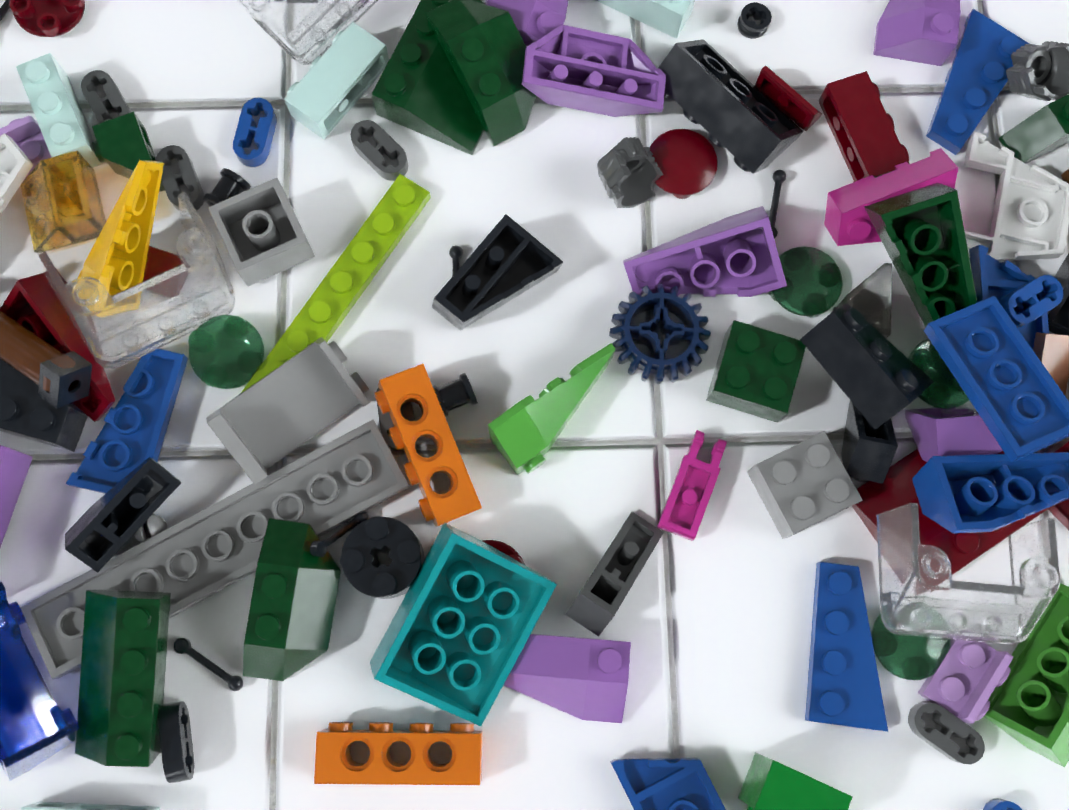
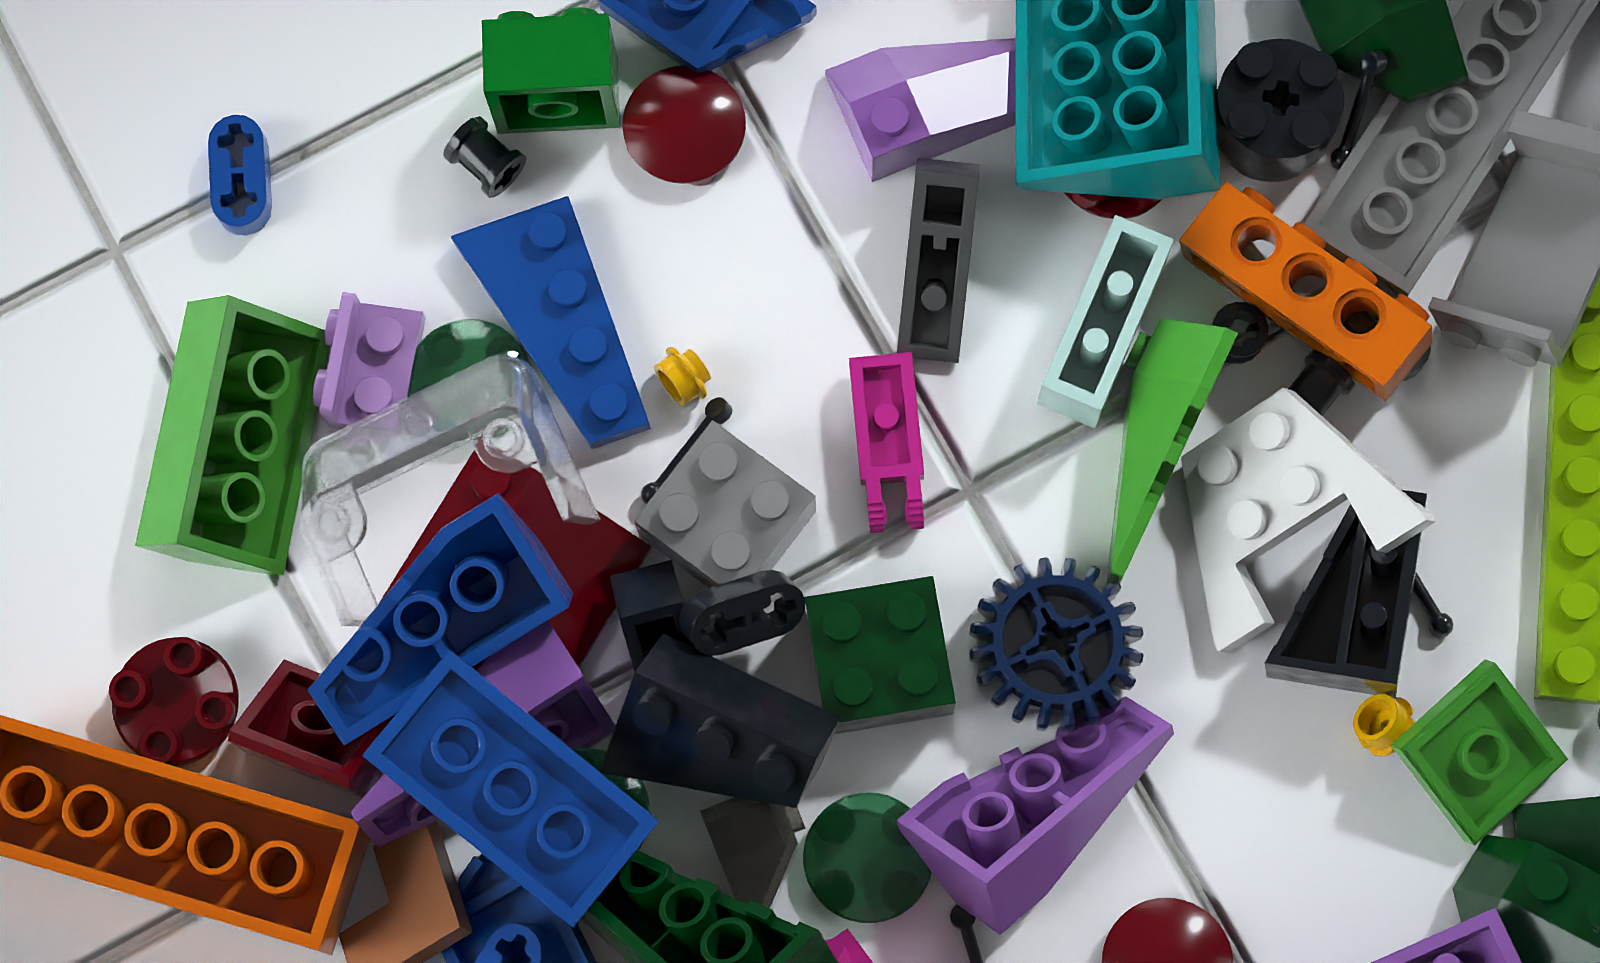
camera: 160 degrees right, 0 degrees up
(473, 437) = (1256, 322): none -> black bush
(477, 178) = (1479, 752): none -> bright green tile
(502, 354) = (1267, 482): none -> white wing
(523, 213) = (1381, 722): none -> yellow plate
(546, 484) = (1104, 321): none -> light aqua brick
(629, 173) = (1242, 883): dark grey hair -> none
(720, 731) = (684, 125): none -> dark red dish
(777, 551) = (716, 410): none -> black hinge
(789, 579) = (683, 375): none -> yellow plate
(826, 419) = (742, 612): none -> black beam
(849, 770) = (484, 156): none -> black bush
(950, 726) = (368, 263): dark grey beam -> none

